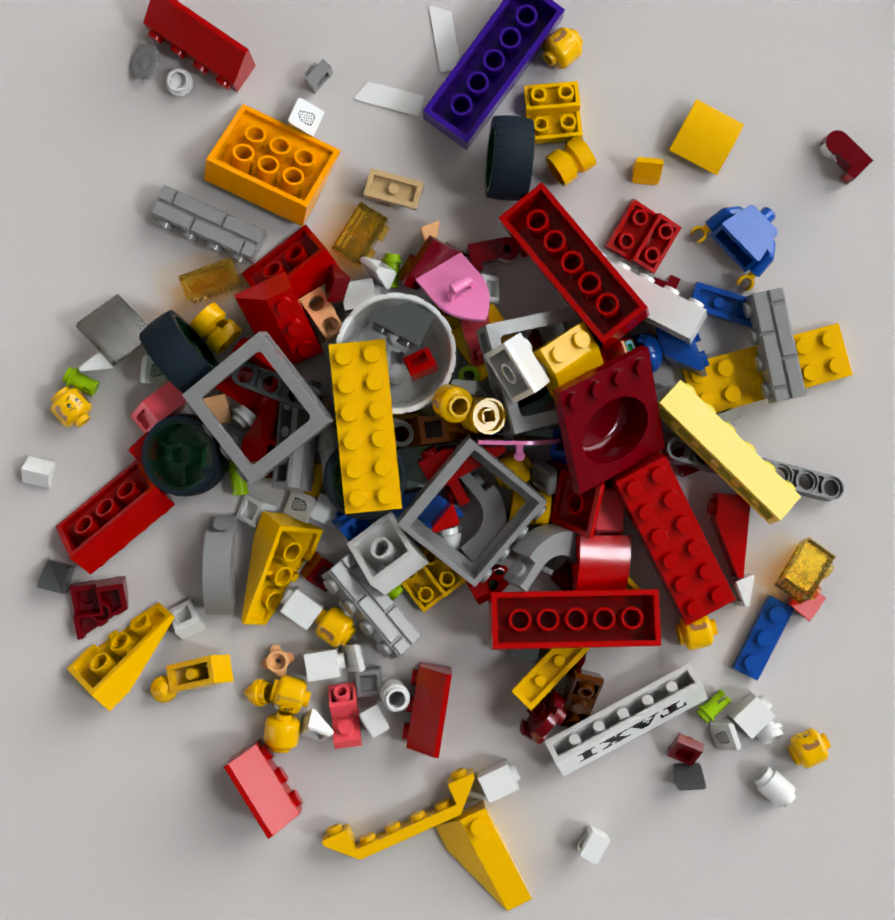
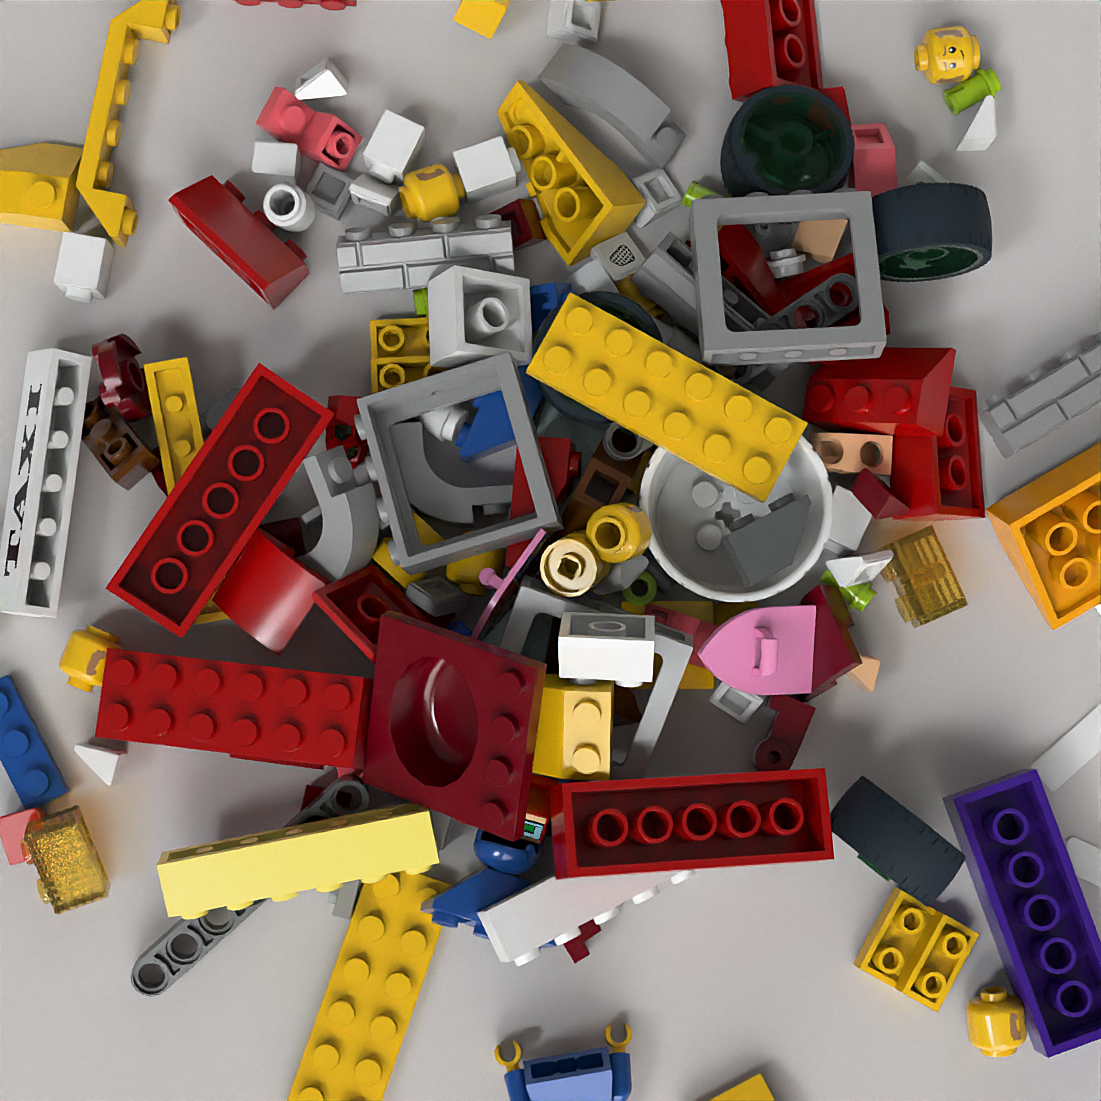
camera: 115 degrees right, 5 degrees down
(113, 329) = (1014, 173): clear smoke tile -> none
(210, 280) = (993, 340): clear yellow brick -> none
(214, 326) = (931, 305): yellow wheel -> none
(259, 692) = (414, 44): yellow plate -> none
(270, 662) = (436, 84): light nougat plate -> none
(281, 731) = (344, 36): yellow head -> none
(290, 694) = (385, 78): yellow head -> none
(393, 189) = (954, 660): tan panel -> none
(420, 364) = (699, 526): red slope -> none
(446, 518) = (471, 423): red slope -> none
(457, 493) = (494, 470): red plate -> none
(574, 159) = (834, 924): yellow wheel -> none
(610, 514) = (327, 647): coral slope -> none
(642, 236) = (666, 956): red slope -> none
(647, 170) = (751, 1023): yellow slope -> none
(721, 303) = (488, 1011): blue plate -> none
(731, 522) = (200, 805): red slope -> none
(775, 345) = (395, 1029): light grey brick -> none

